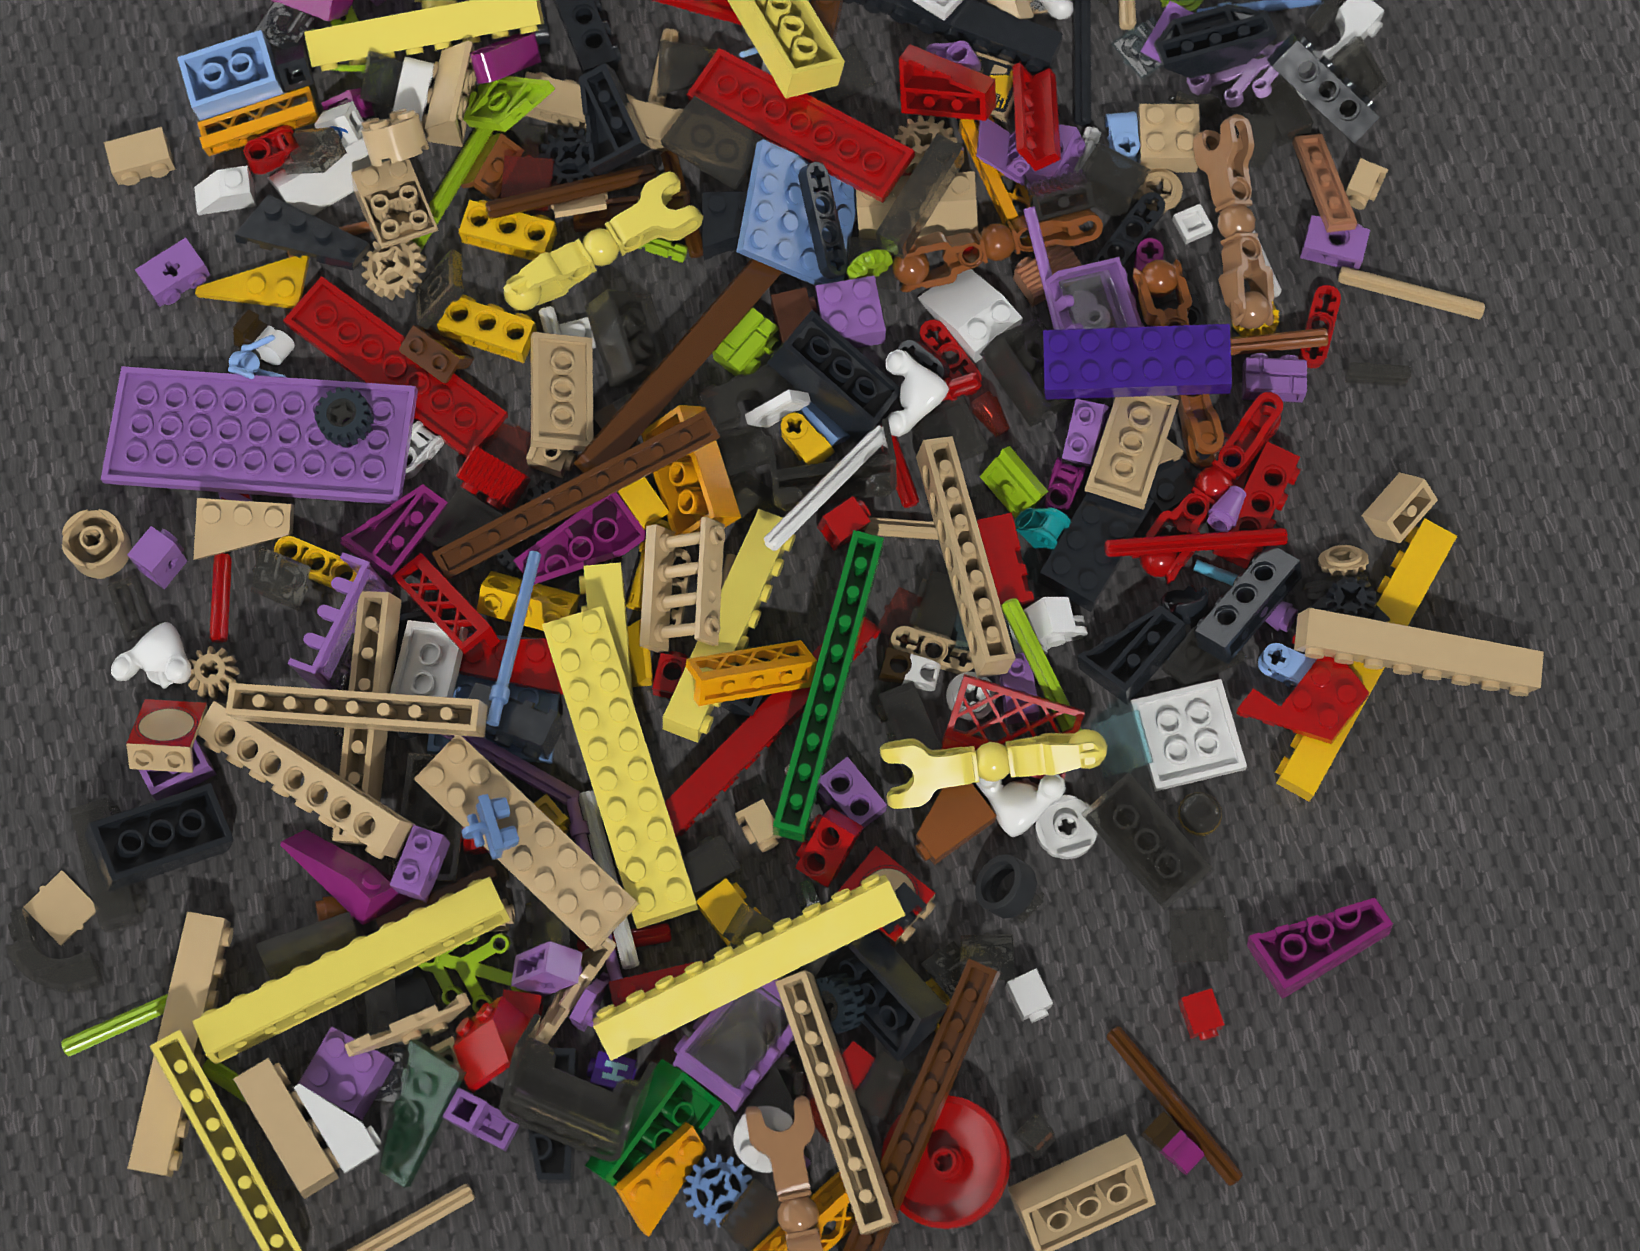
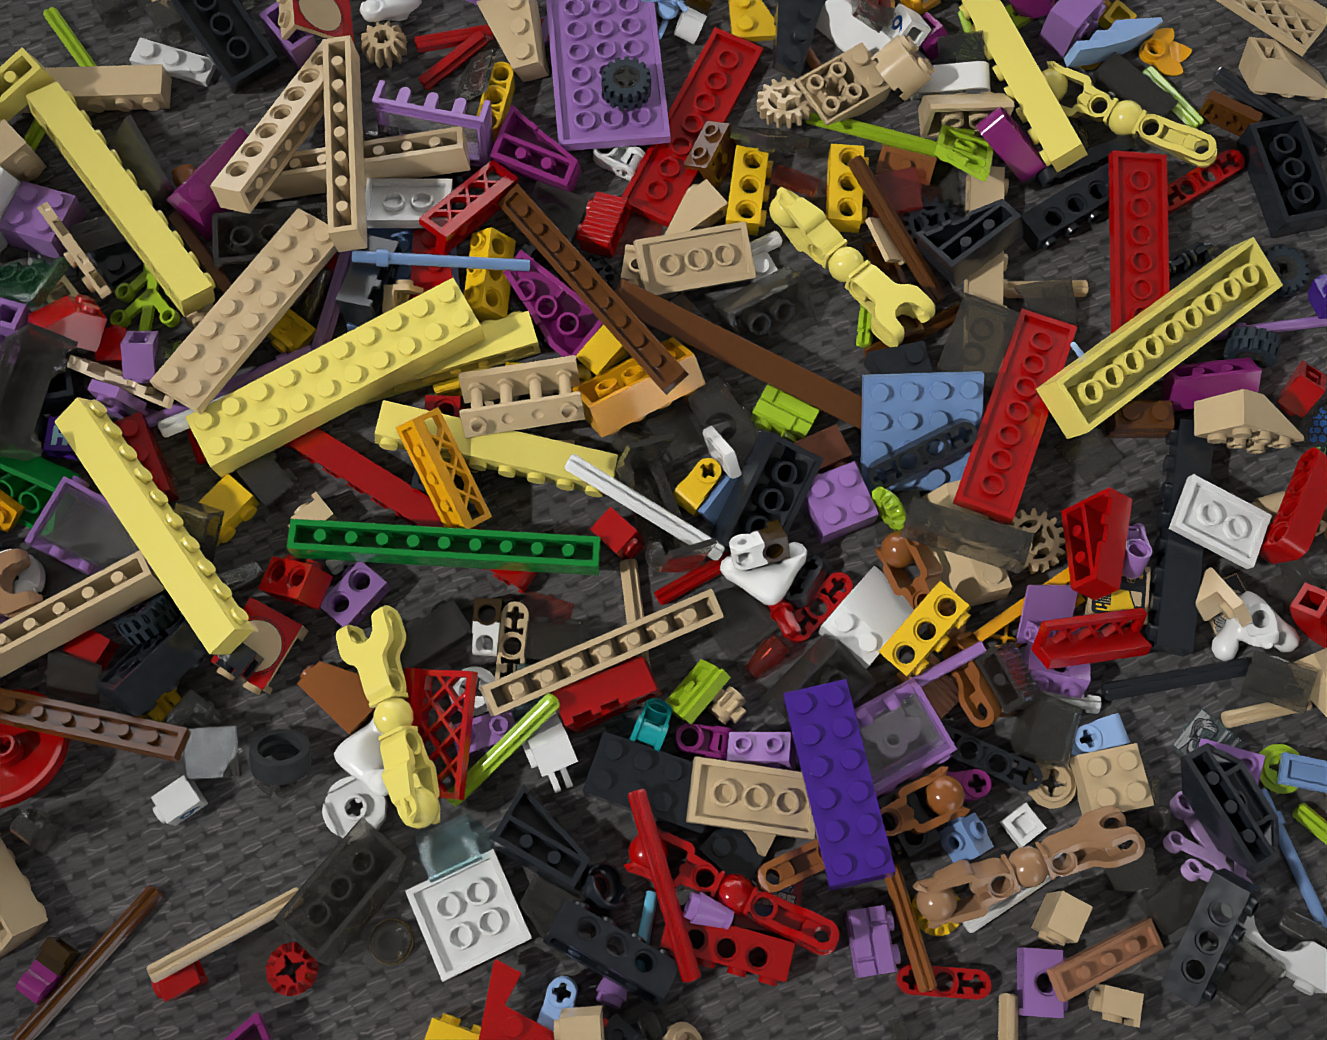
camera: 75 degrees right, 0 degrees up
(170, 912) = (177, 62): none -> white plate
(251, 602) = (453, 60): none -> red axle
(420, 863) = (217, 227): medium lavender brick -> none
(490, 276) = (795, 181): none -> clear red piece
(497, 839) = (246, 266): medium blue hips -> none
(501, 385) = (698, 209): none -> tan slope
(542, 698) = (399, 293): none -> tan bracket
(889, 387) = (760, 547): none -> leg
(1000, 272) = (908, 633): none -> yellow brick
(1034, 456) = (728, 705): none -> tan gear
(1170, 960) = (218, 938): none -> tan axle
(1201, 273) = (965, 838): none -> medium blue brick
(1203, 919) = (305, 974): none -> red gear
(1284, 209) = (1061, 918): none -> tan brick

